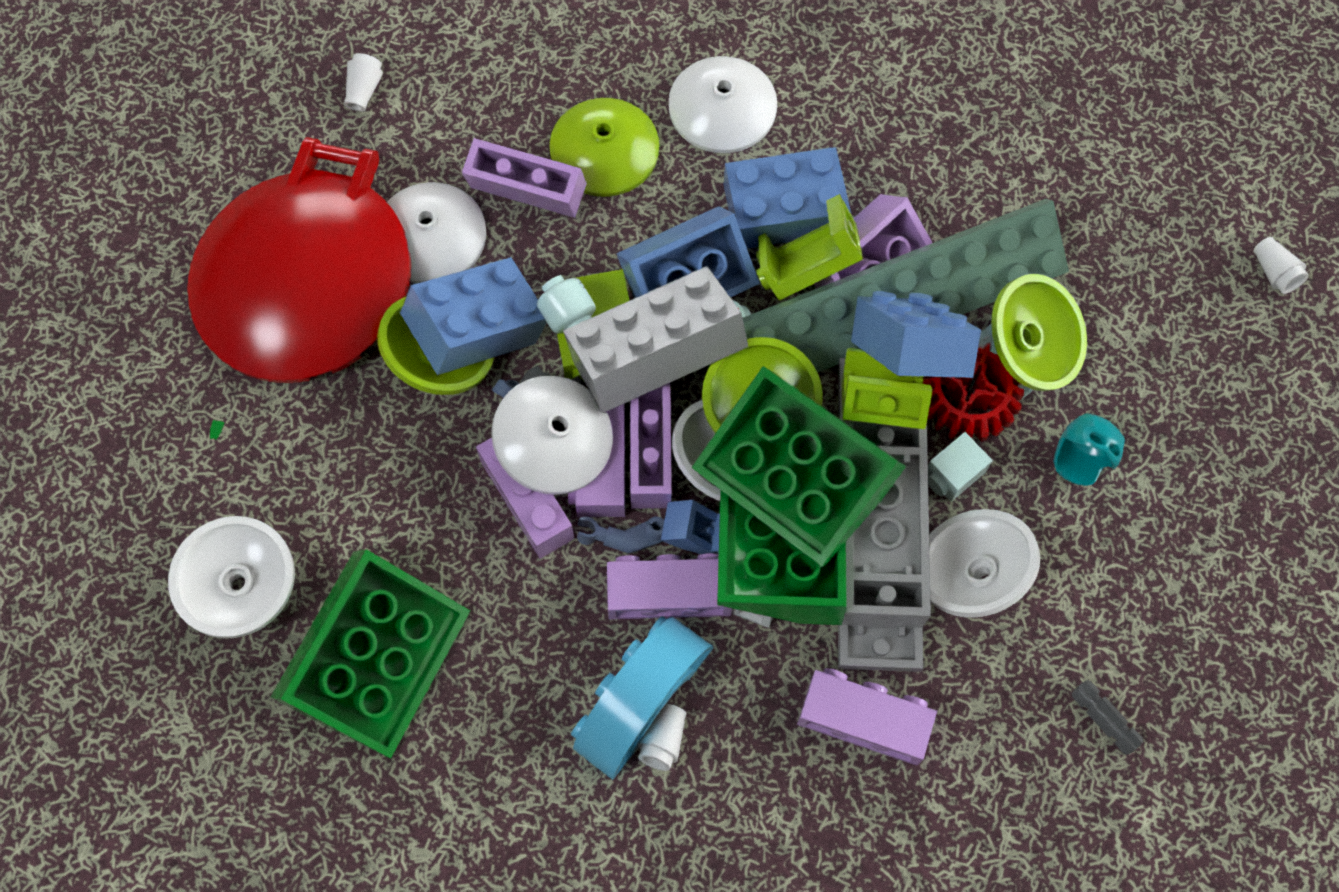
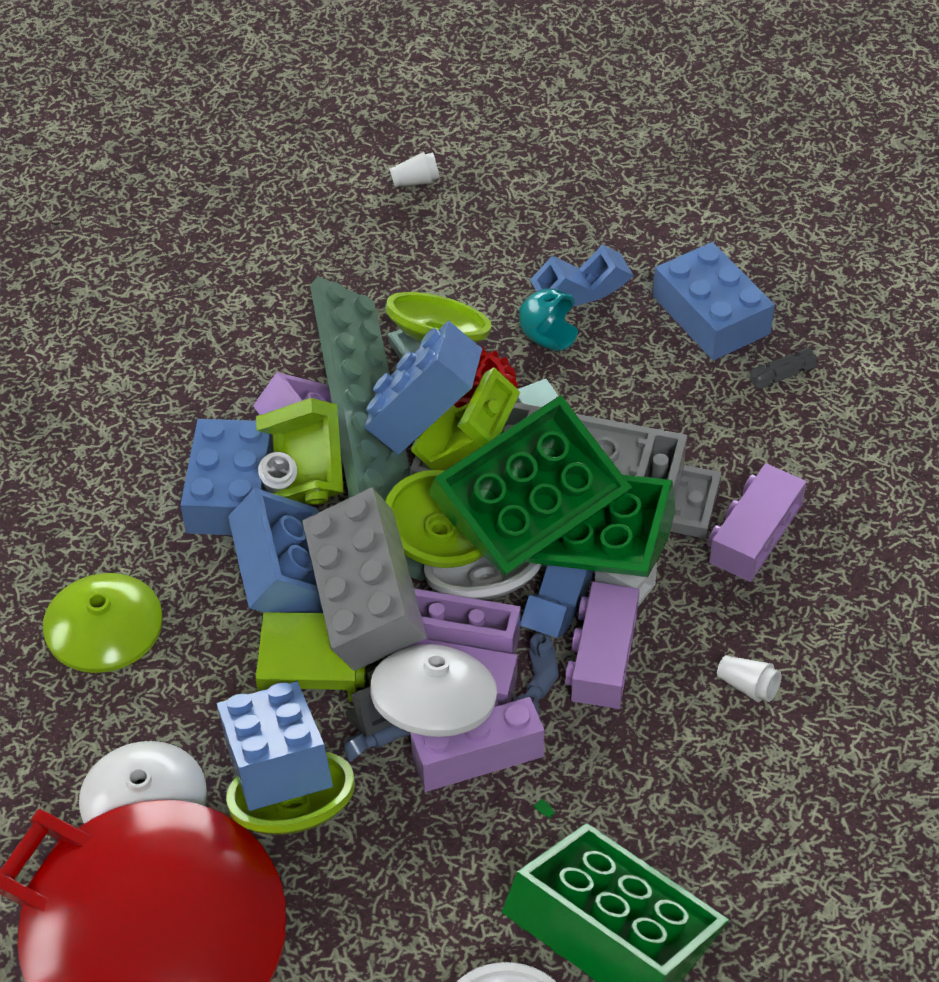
camera: 75 degrees left, 20 degrees down
(483, 570) = (544, 808): none -> green piece
(524, 177) = (122, 683): lavender brick -> none
(565, 303) = (296, 654): light aqua head -> none
(638, 693) = (719, 676): medium azure brick -> none
(718, 119) = (96, 516): white dish -> none
(774, 232) = (277, 465): none -> white cone
(978, 546) = (640, 389): white dish -> none
(1159, 466) = (594, 280): none -> medium blue brick
(1180, 620) = (713, 300): none -> medium blue brick

